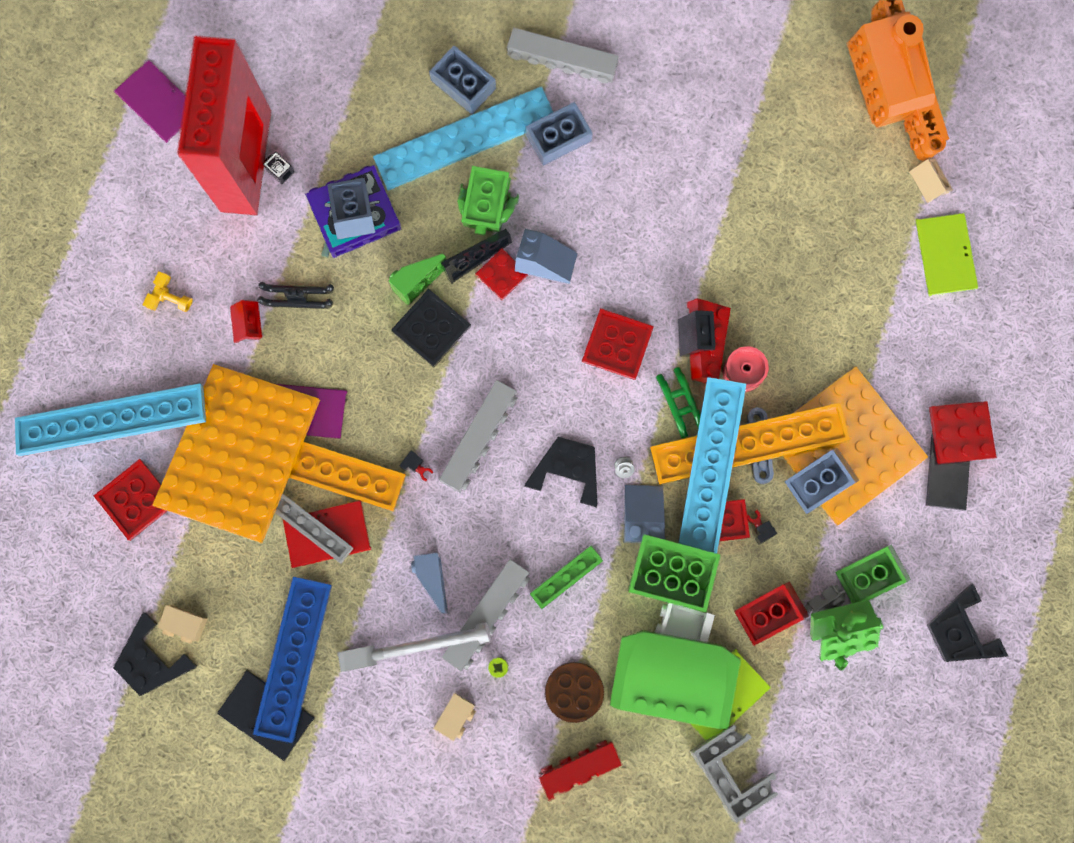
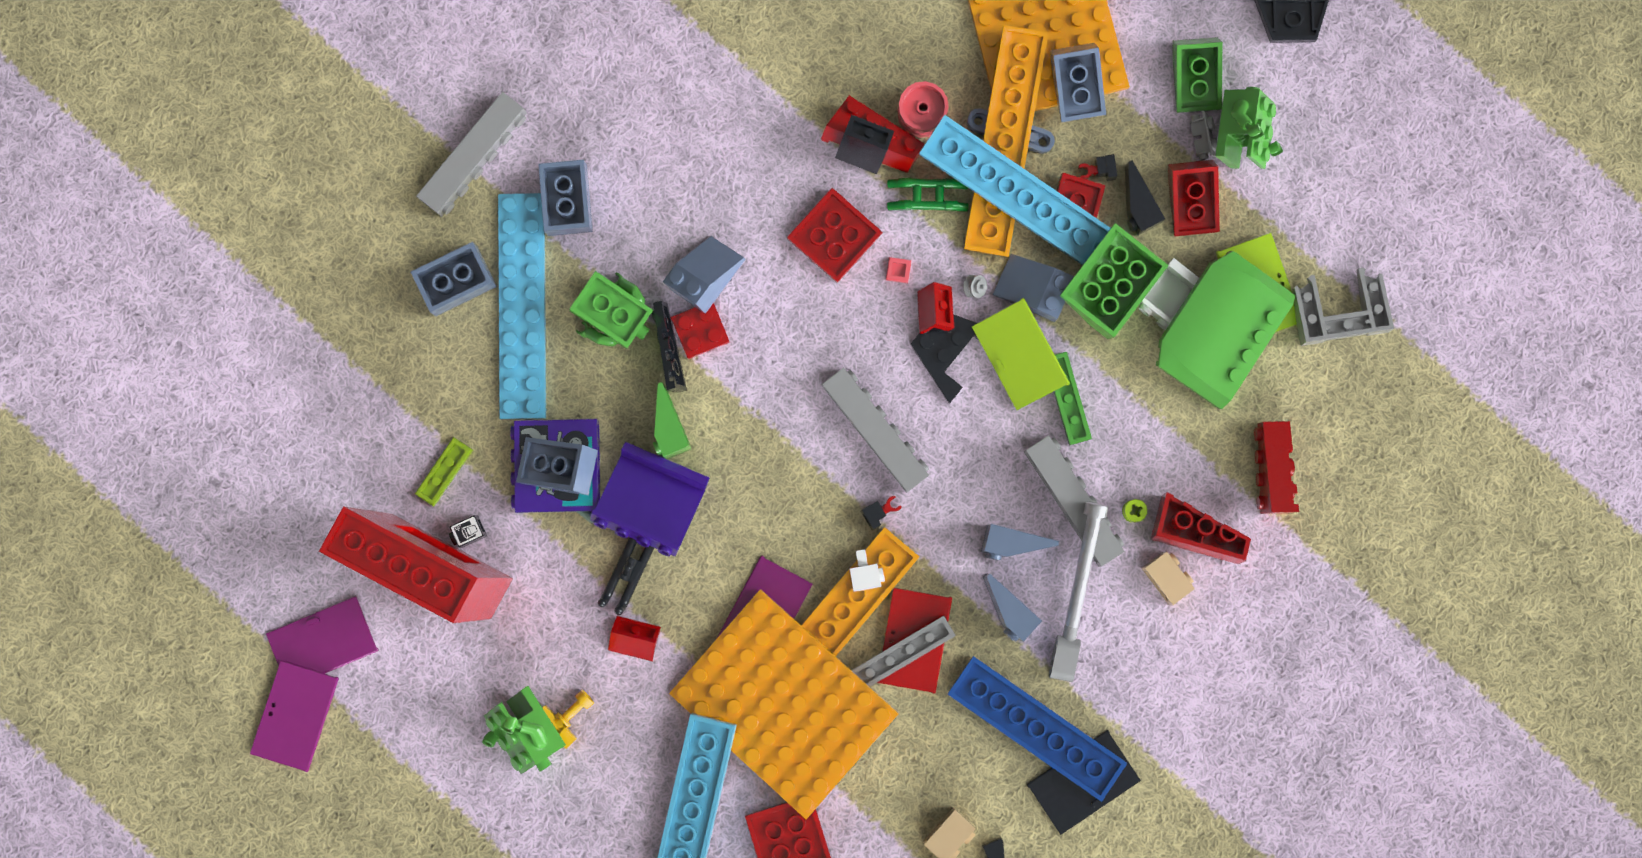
camera: 70 degrees left, 5 degrees up
(104, 104) = (298, 716): none -> magenta container
(137, 270) = (528, 737): none -> bright green torso
(317, 133) = (443, 471): none -> lime tile
(353, 288) = (650, 500): none -> dark purple panel
(360, 474) = (865, 575): none -> white brick
(376, 600) = (1012, 613): none -> sand blue slope
(431, 328) = (730, 433): black plate -> none
(501, 715) = (1195, 531): none -> red wedge
(574, 692) = (1191, 441): reddish brown tile -> none
(589, 522) = (1018, 345): none -> lime container
(593, 443) = (935, 307): none -> red panel
(612, 404) = (898, 270): none -> coral tile
(744, 574) = (1141, 206): none -> black slope

